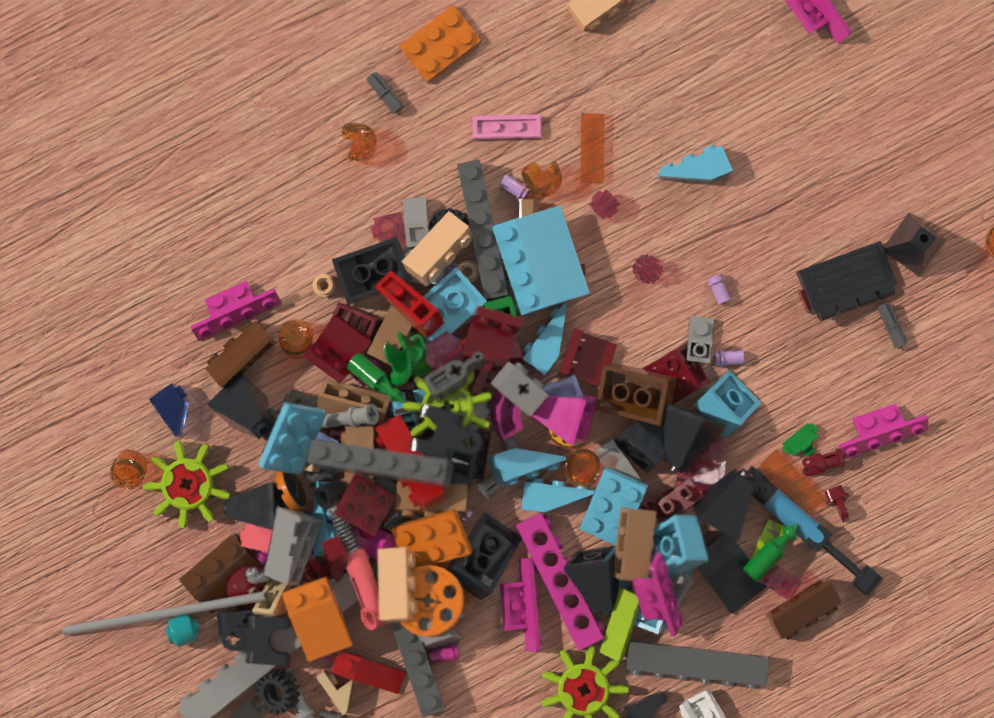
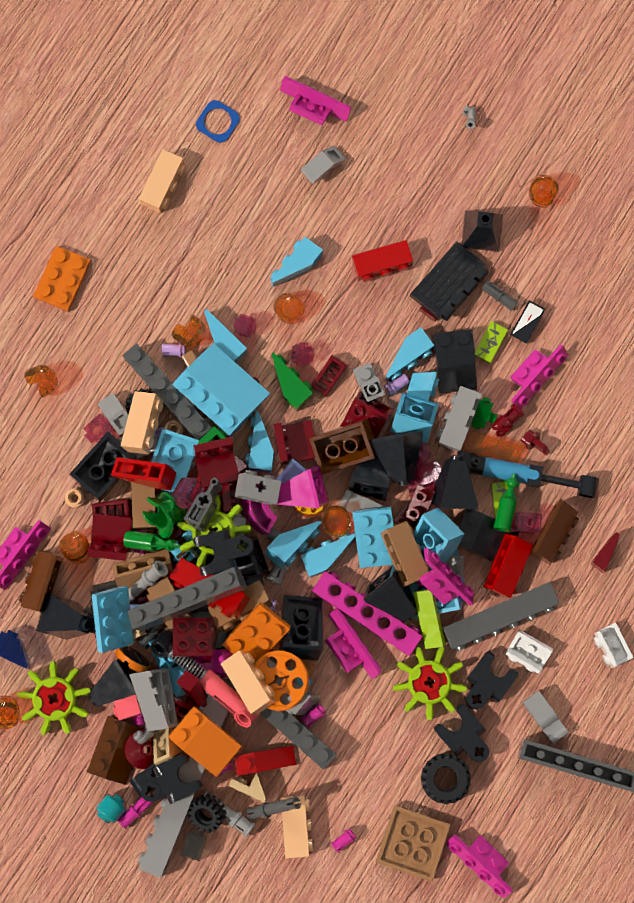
camera: 30 degrees left, 5 degrees down
(164, 613) = (90, 803): light grey piece -> none
(203, 647) = (134, 812): none -> dark pink axle
(385, 92) = (41, 335): dark grey axle -> none
(507, 127) = (143, 310): bright pink tile -> none
(574, 207) = (225, 339): none -> medium azure slope
(592, 148) = (213, 291): clear orange tile -> none
(616, 299) = (292, 388): none -> green slope
(655, 206) = (282, 308): none -> clear orange helmet
(681, 299) = (339, 362): none -> dark red slope
(719, 288) = (361, 339): lavender pin -> none
(735, 616) = (508, 565): none -> red brick
(755, 376) = (423, 385): none -> medium azure slope
(766, 330) = (412, 349): none -> medium azure slope
(772, 432) = (458, 419): none -> light grey wedge
(785, 76) = (322, 163): none -> light grey slope
(789, 217) = (382, 261): none -> red brick
(804, 368) = (455, 360): none -> black slope
(841, 663) = (604, 556): none -> dark red slope
(853, 369) = (490, 342): none -> lime tile
(905, 370) = (527, 321): none -> slope
(975, 112) = (471, 120): none -> light grey arm

